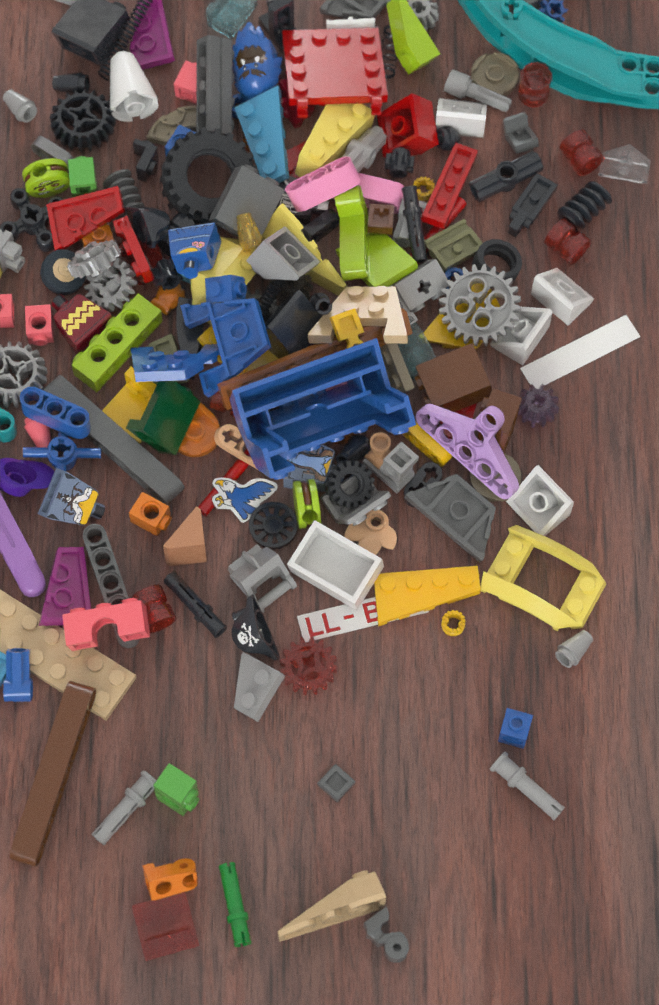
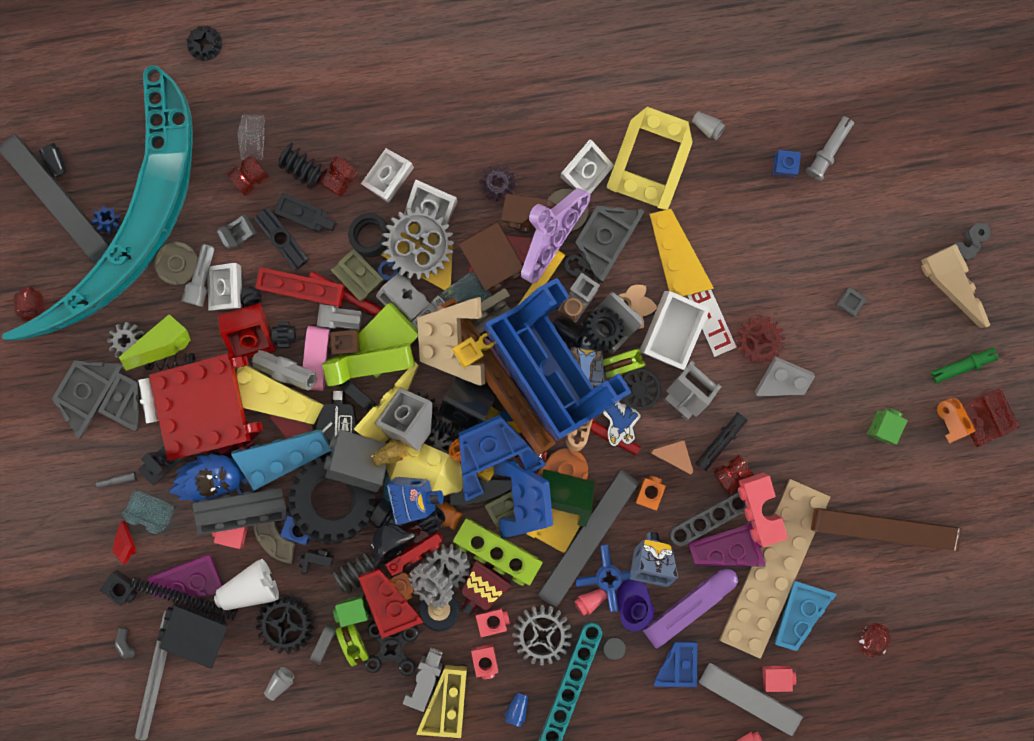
camera: 100 degrees left, 20 degrees up
(18, 684) = (812, 574): blue piece -> none
(48, 403) = (576, 600): blue beam -> none
(71, 81) = (248, 641): black cone -> none
(134, 798) = (893, 461): light grey pin -> none
(225, 288) = (448, 464): blue bracket -> none
(252, 632) = (740, 388): black hat -> none
(322, 184) = (329, 396): bright pink beam -> none
(325, 307) = (437, 381): black pin -> none
(410, 195) = (322, 318): black pin -> none
(429, 186) = (298, 306): yellow bush -> none
(445, 621) = (701, 220): yellow bush -> none
(534, 84) = (185, 225): clear red wheel -> none
(580, 352) = (437, 154): white sticker -> none

